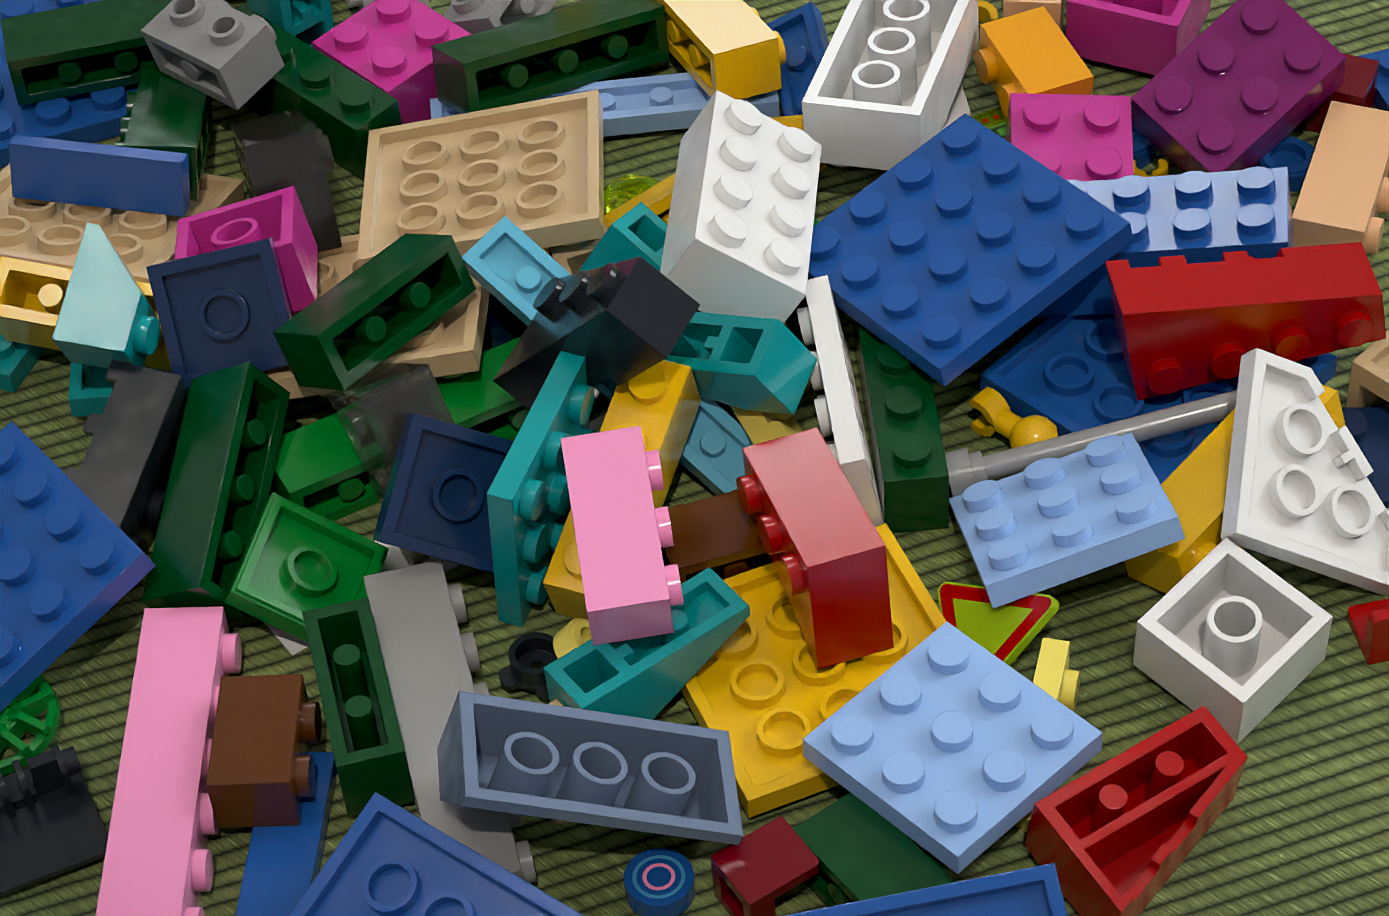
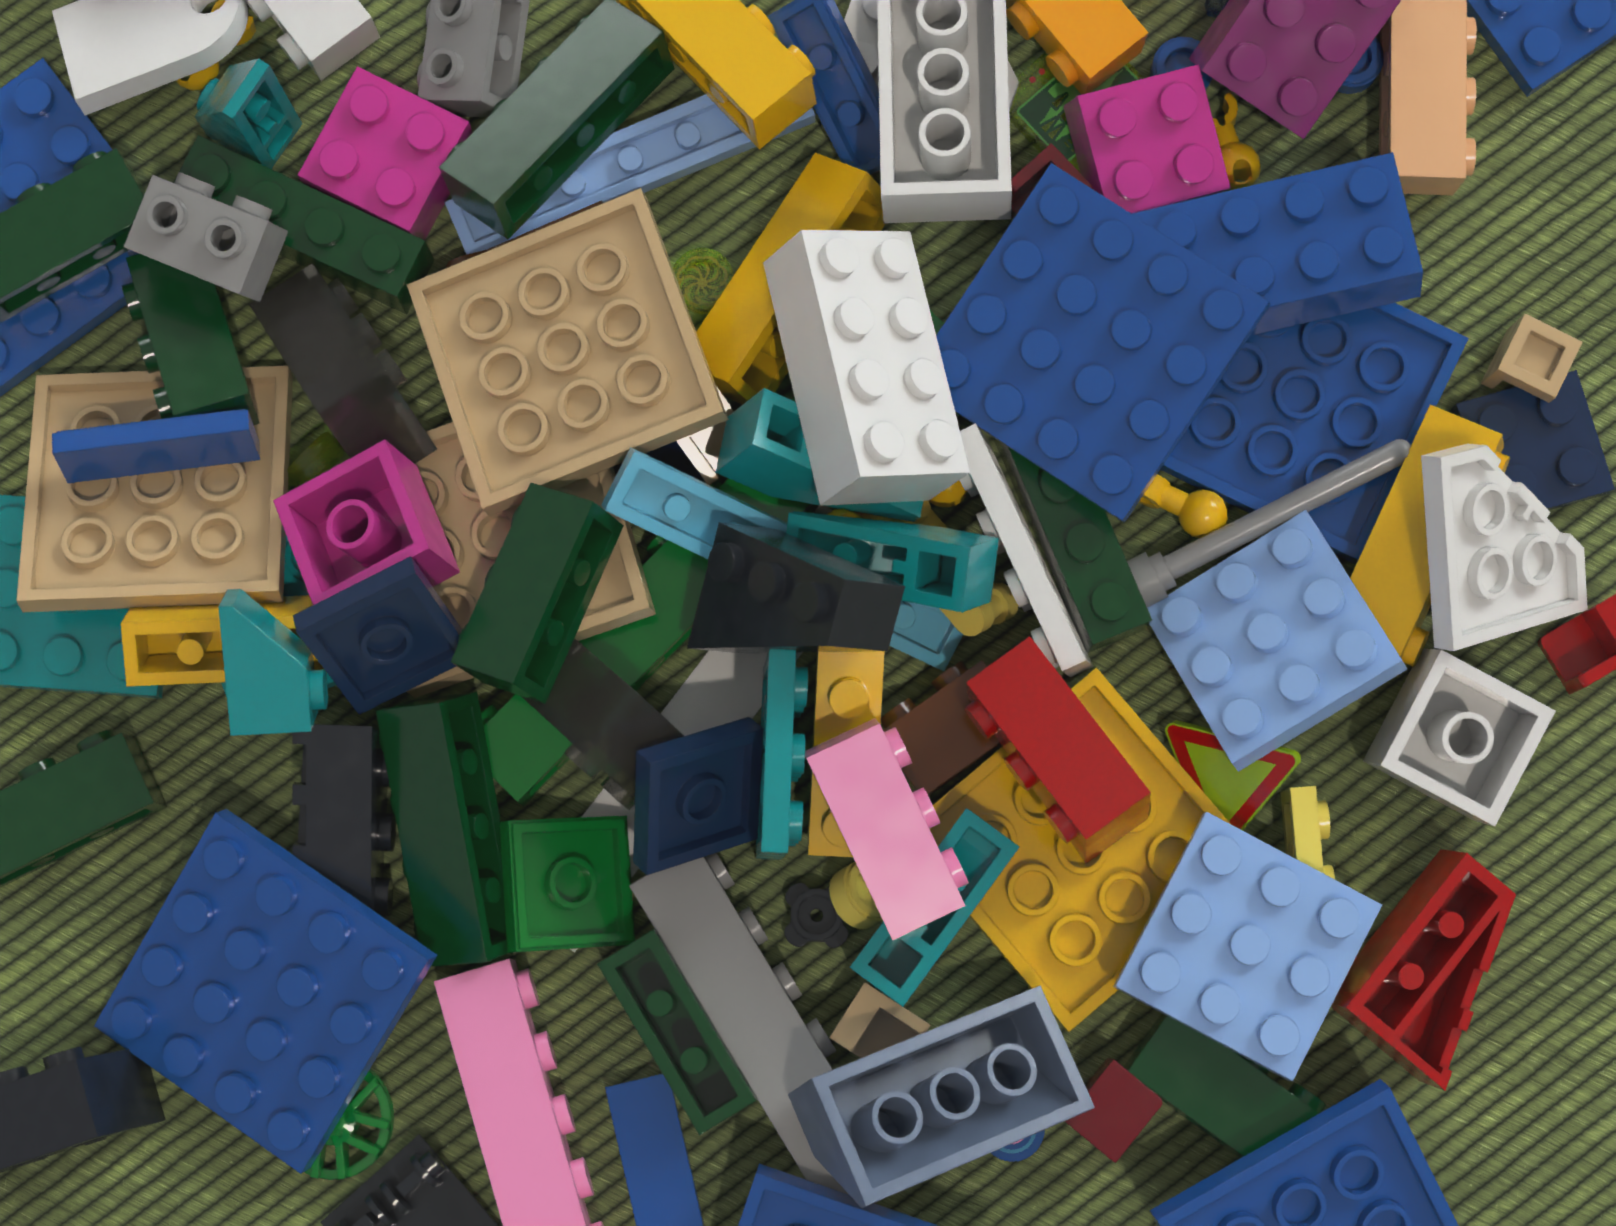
camera: 20 degrees left, 35 degrees up
(262, 750) = (612, 1111): reddish brown brick -> none
(1196, 320) = (1392, 351): red wedge -> none

